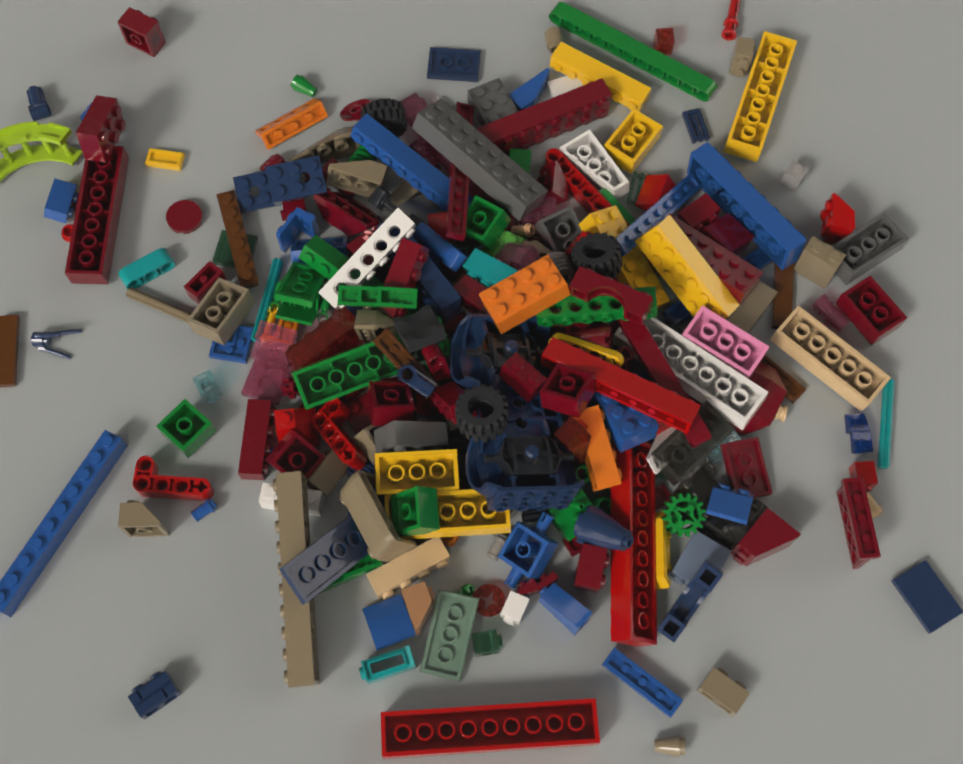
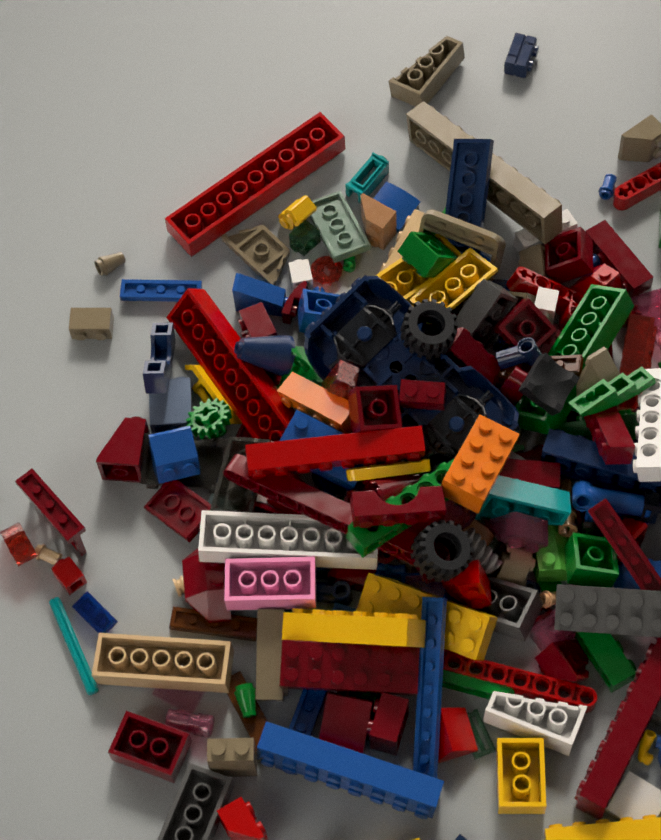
camera: 150 degrees right, 5 degrees down
(255, 733) = (428, 73): none -> dark tan wedge
(355, 418) = (547, 302): none -> white brick
(478, 666) = (297, 212): none -> yellow brick
(531, 659) = (260, 251): none -> dark tan wing
(782, 300) = (246, 698): none -> green cone
(895, 527) = (18, 544): none -> clear red brick

